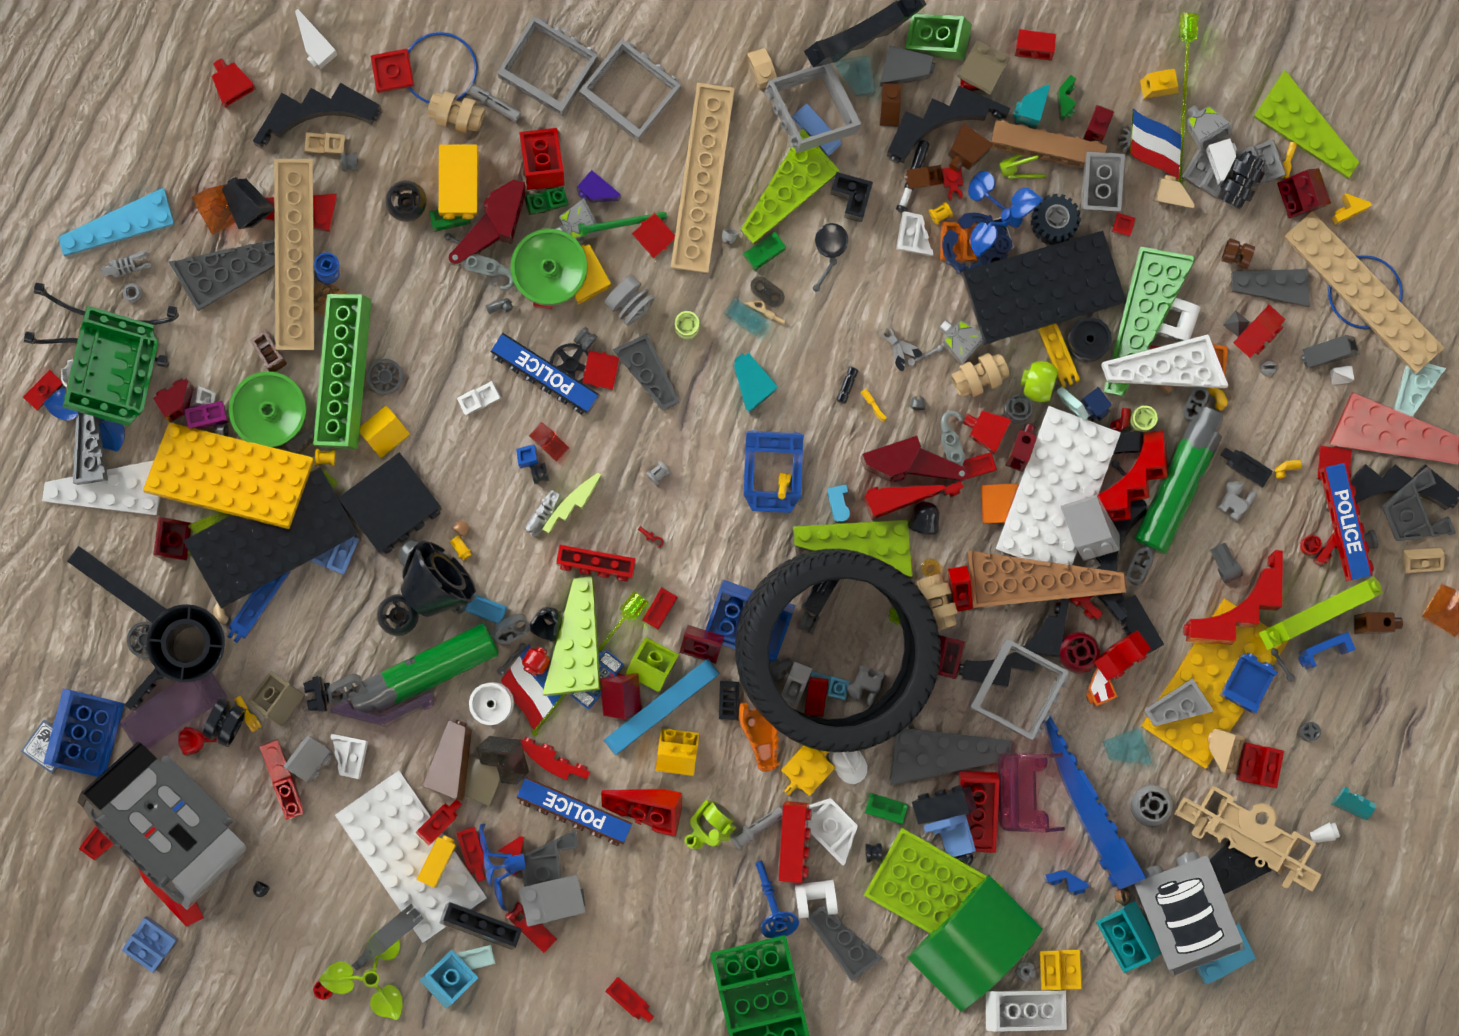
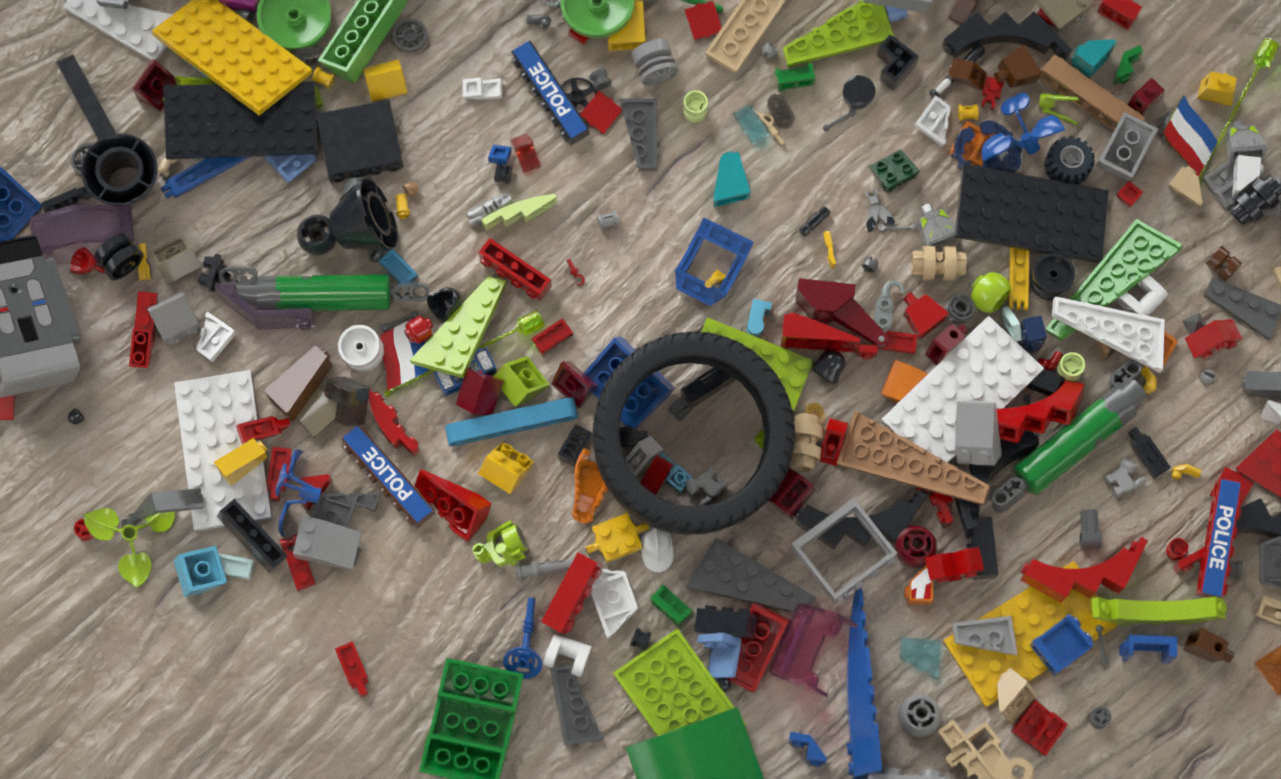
camera: 30 degrees right, 10 degrees down
(898, 301) = (894, 170): none -> dark green hinge

